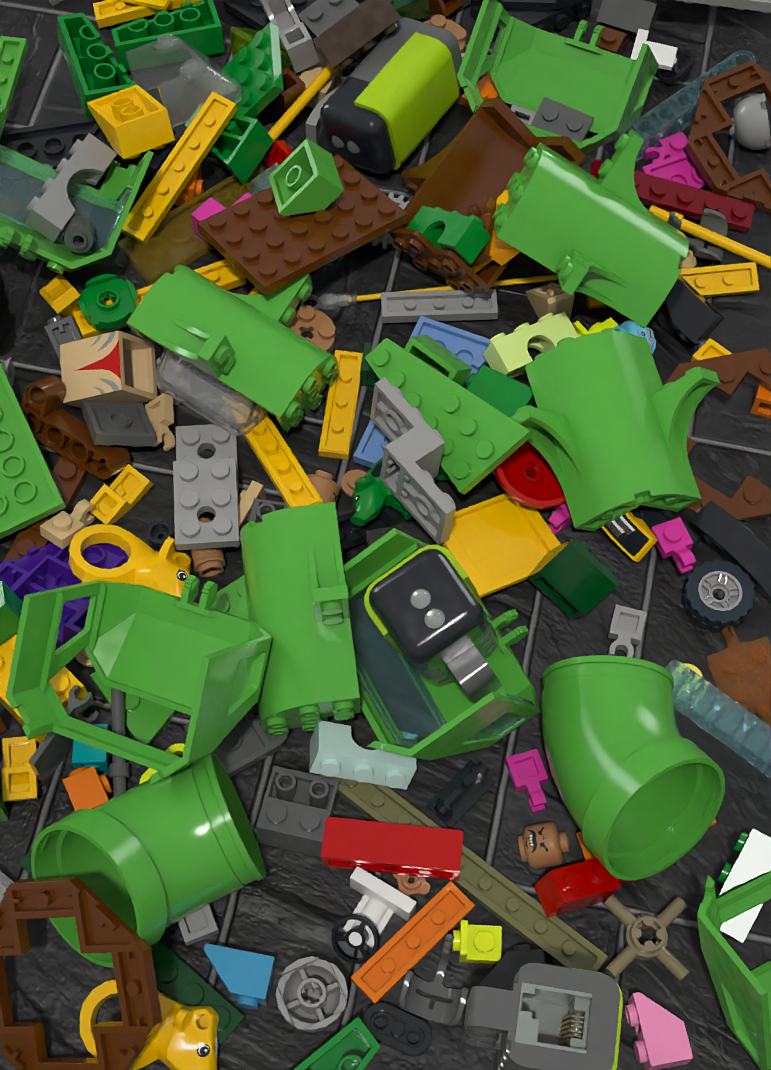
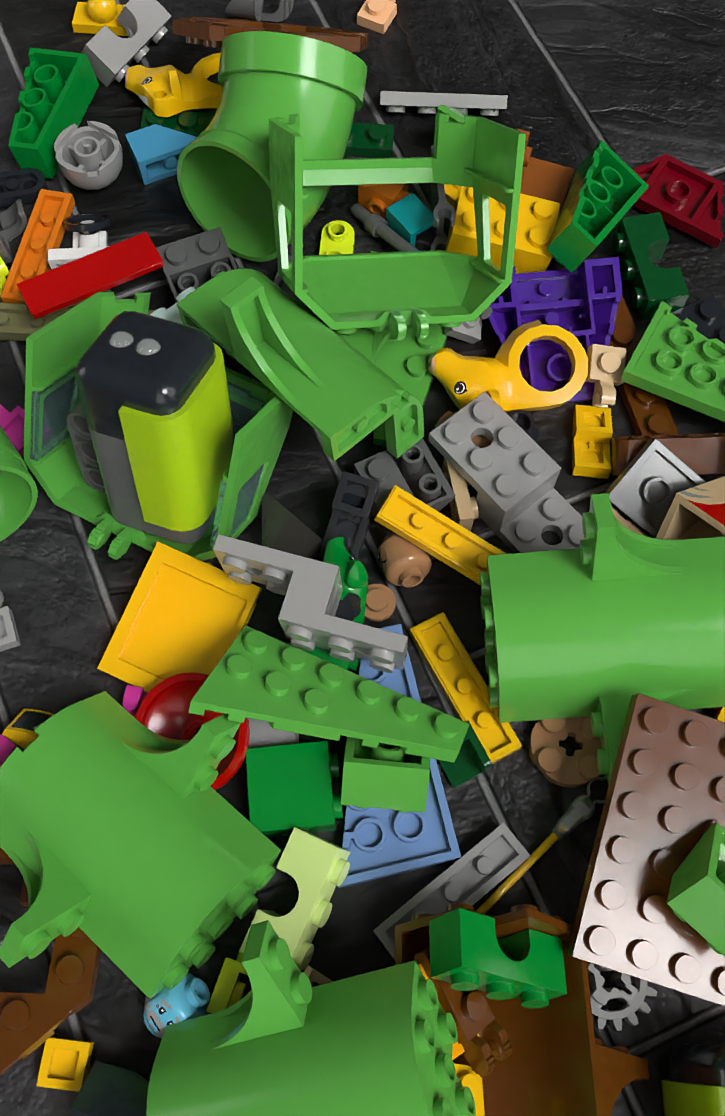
camera: 145 degrees right, 5 degrees up
(573, 578) = (71, 624): dark green slope -> none

